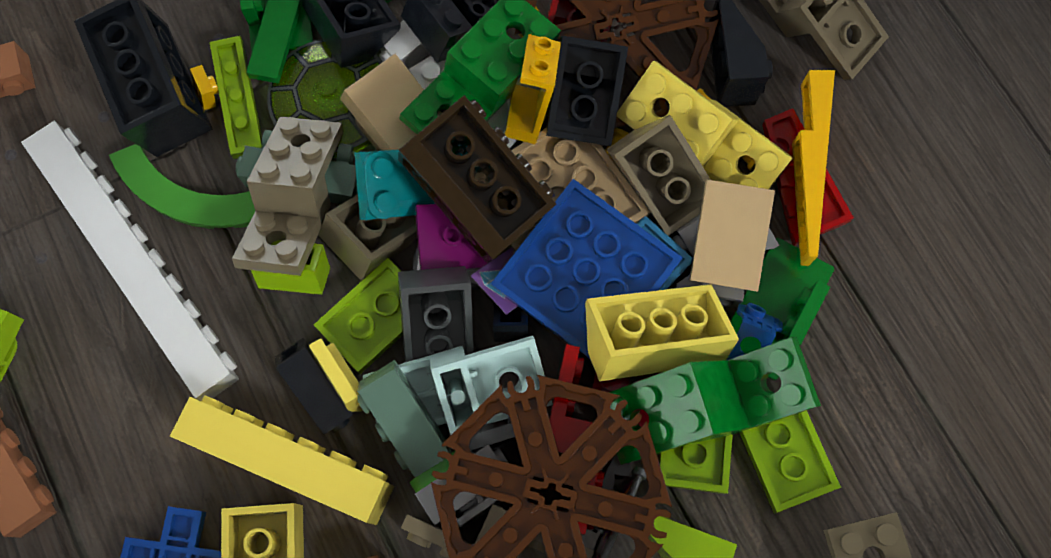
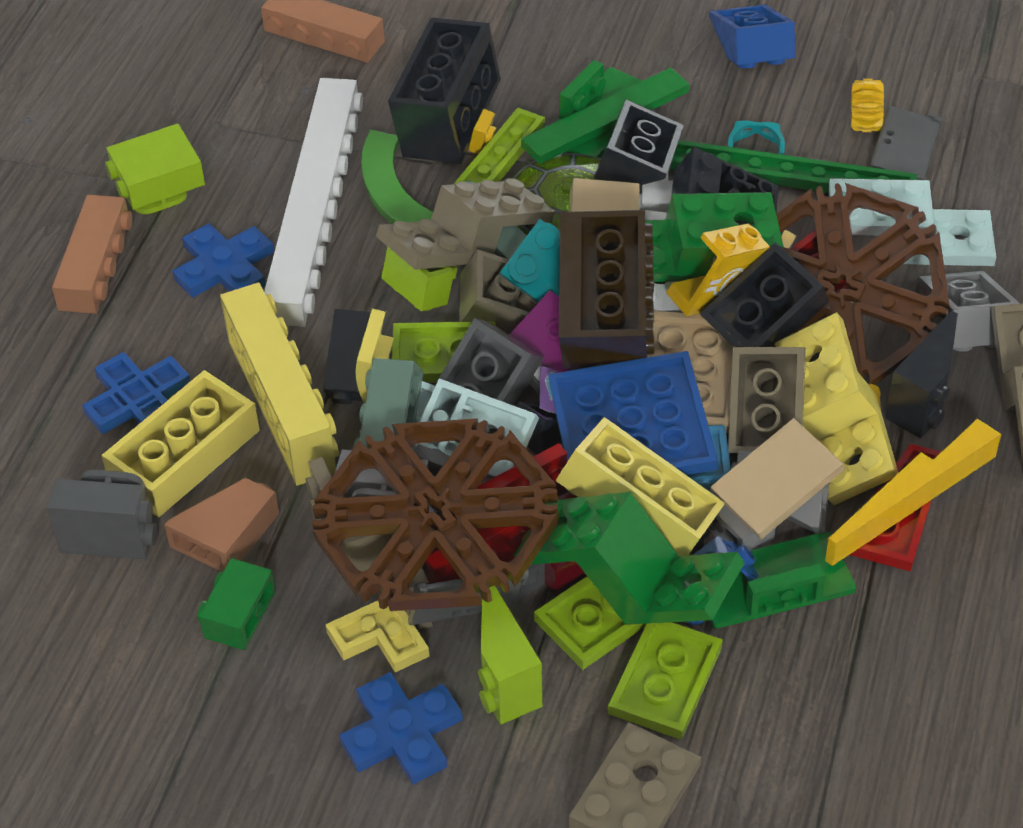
camera: 45 degrees right, 25 degrees down
(113, 377) = (222, 260): none -> blue plate

